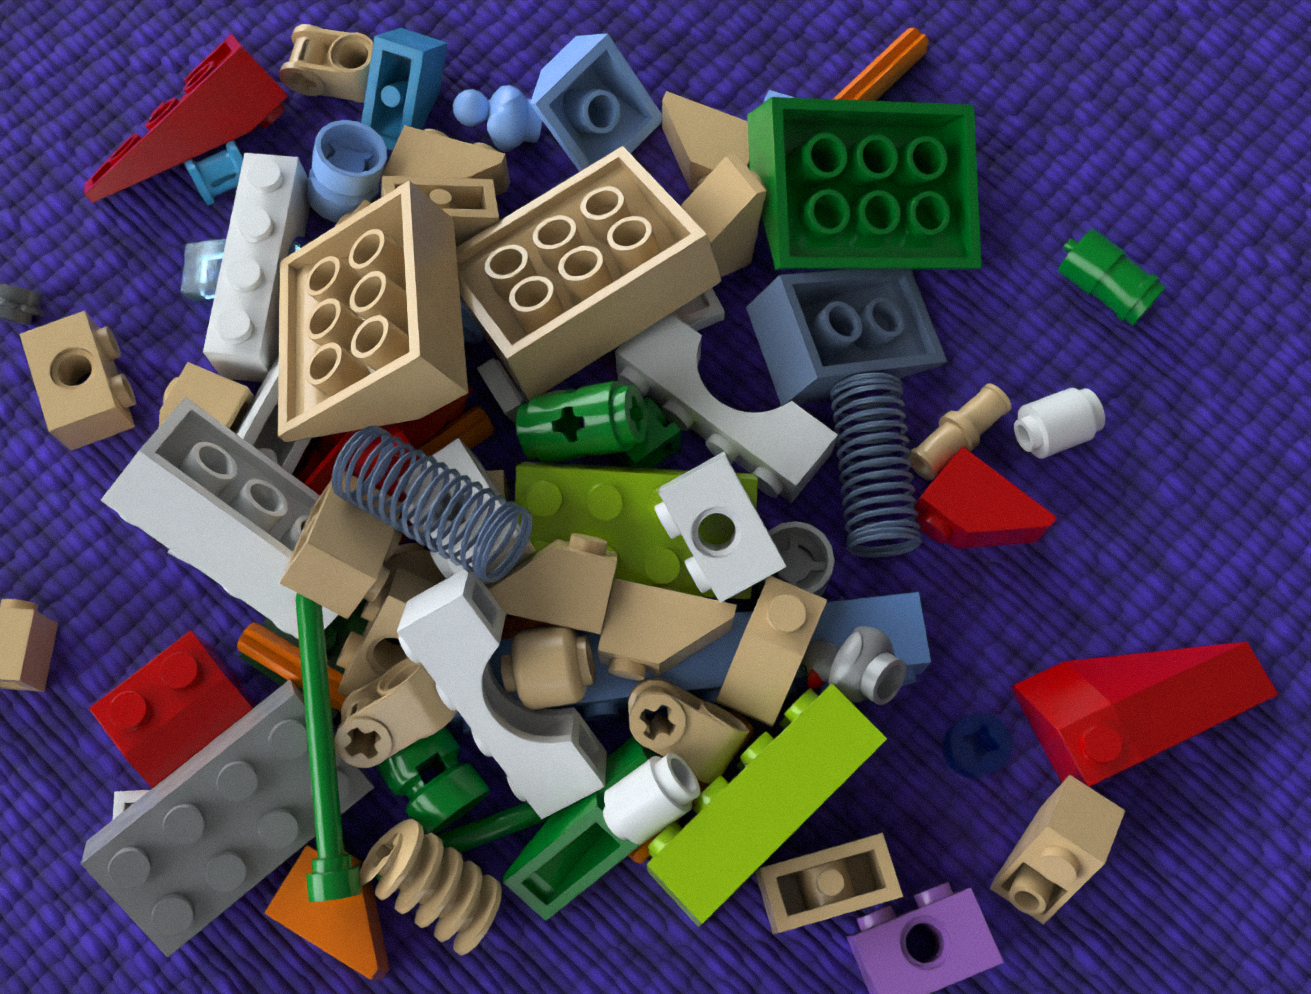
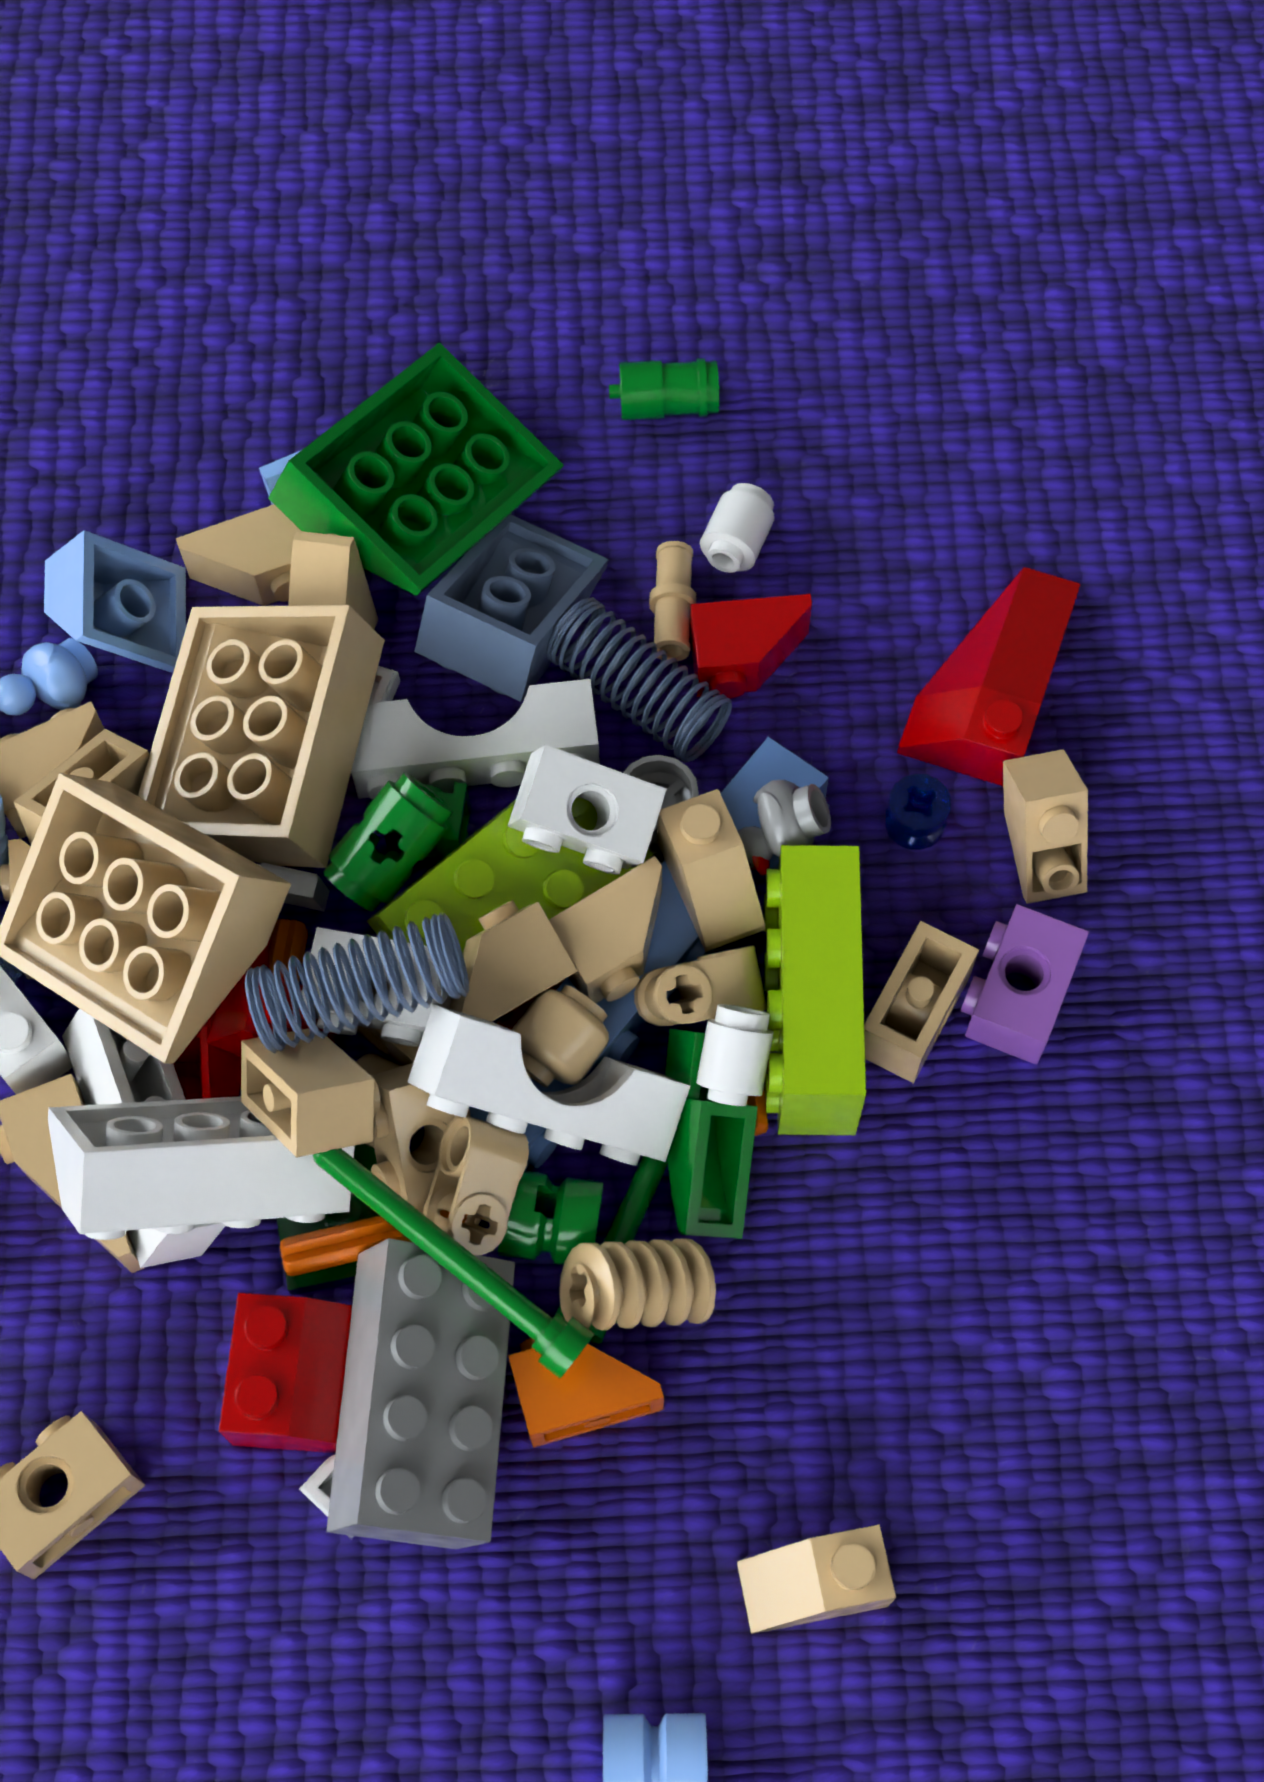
camera: 45 degrees left, 5 degrees down
(887, 67) = (328, 378): orange axle -> none

